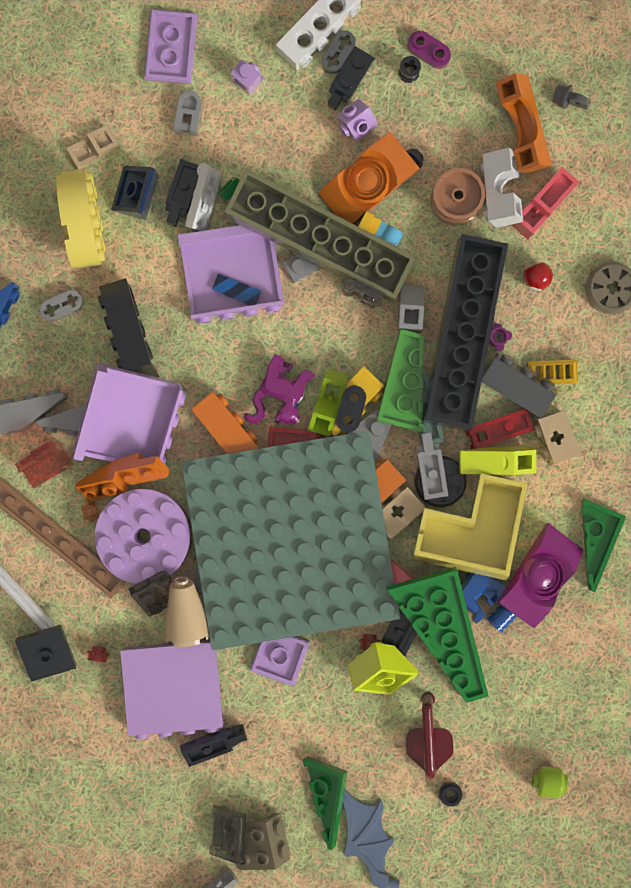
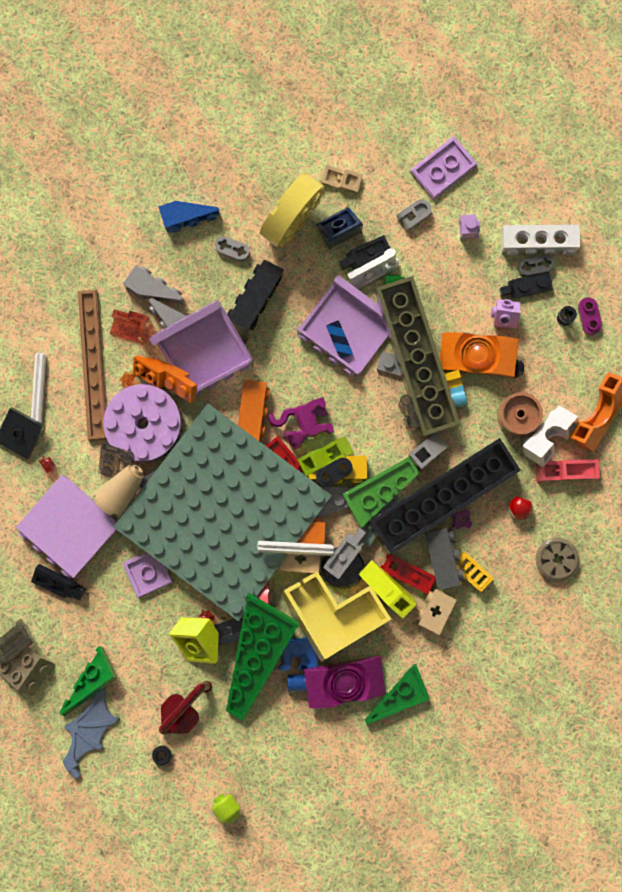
camera: 50 degrees right, 5 degrees down
(385, 508) = (295, 548): none -> white axle

